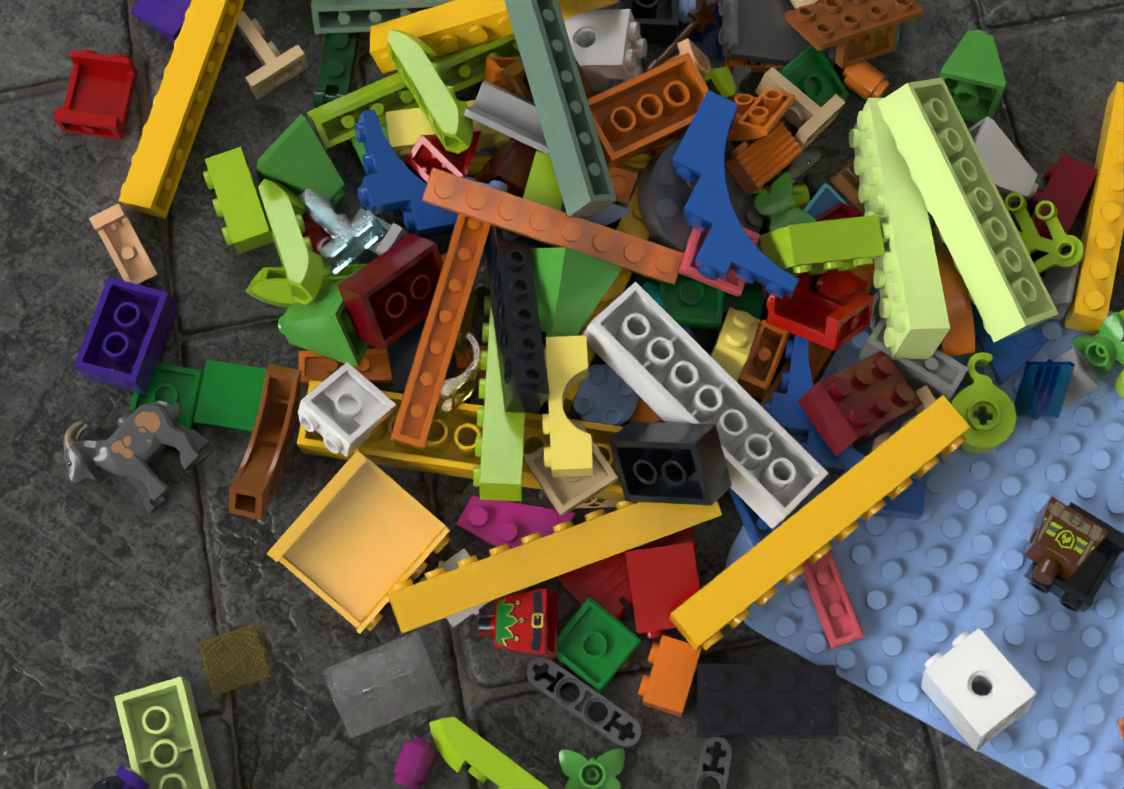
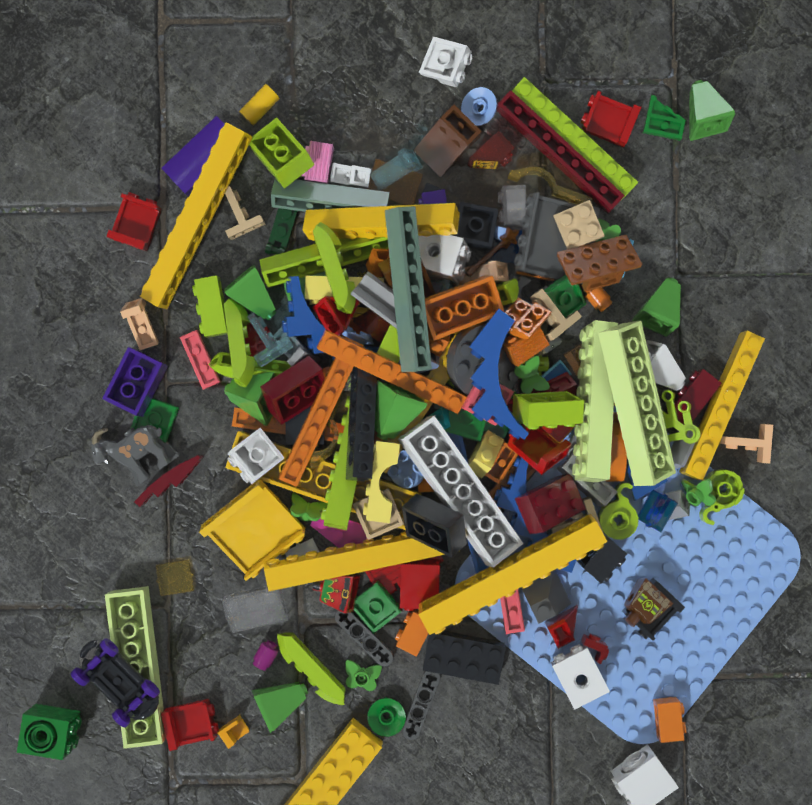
camera: 10 degrees right, 15 degrees up
(194, 496) = (175, 476): none -> dark red slope
(229, 396) = (192, 426): green tile -> none
(230, 289) = (200, 359): none -> coral tile
(267, 449) = (208, 464): dark orange arch -> none
(447, 500) = (305, 510): none -> bright green animal
(885, 569) = (546, 597): none -> dark grey slope
(928, 620) = (563, 627): none -> red slope
(971, 477) = (603, 561): none -> black brick
(998, 636) = (594, 642): none -> red bracket

